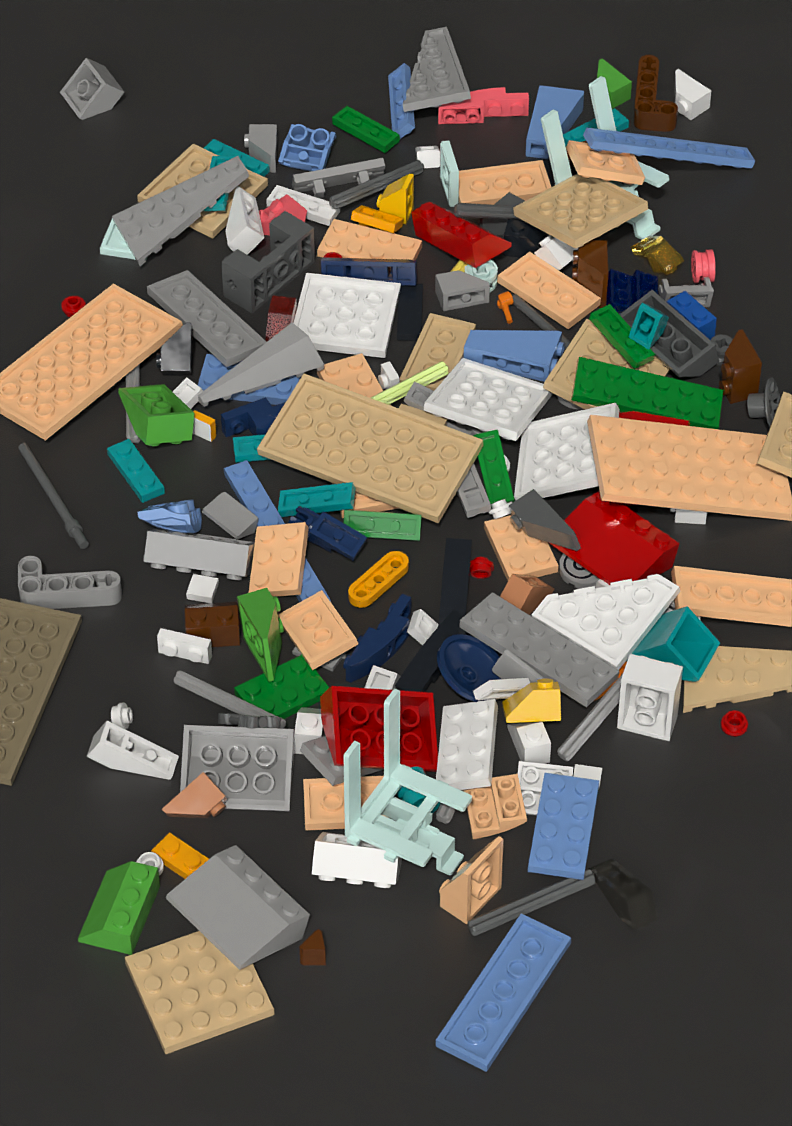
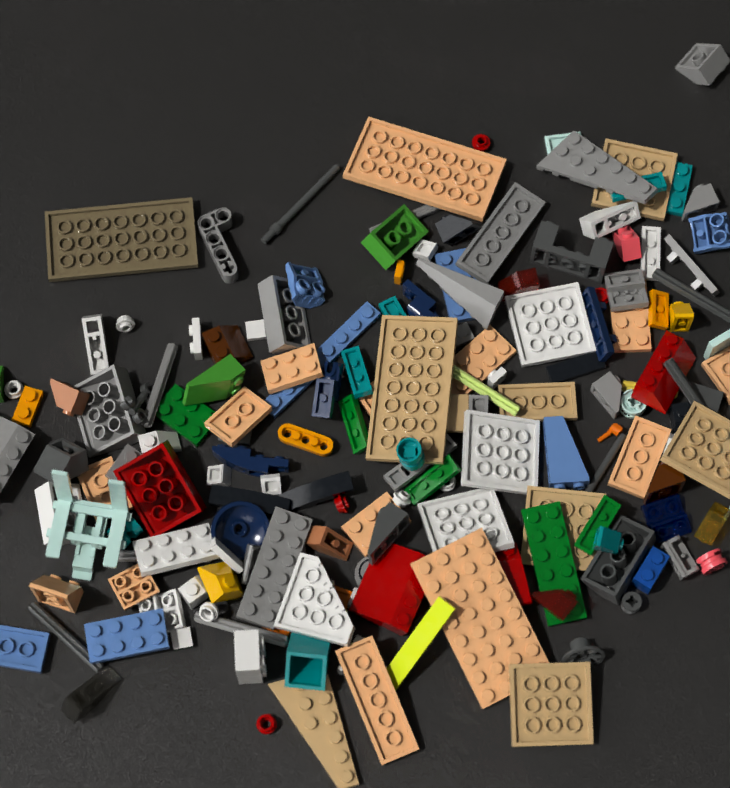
camera: 70 degrees right, 20 degrees up
(135, 470) = (344, 246): teal plate -> none
(231, 516) = (322, 322): light grey slope -> none
(291, 823) = (62, 456): none -> dark grey slope
(341, 233) = (626, 290): none -> light grey slope
(462, 458) = (410, 454): none -> teal wheel
(574, 730) = (205, 614): none -> white plate
(695, 523) = (419, 641): none -> neon yellow tile
(701, 398) = (556, 601): none -> clear red slope
(740, 369) = (605, 621): reddish brown slope -> none

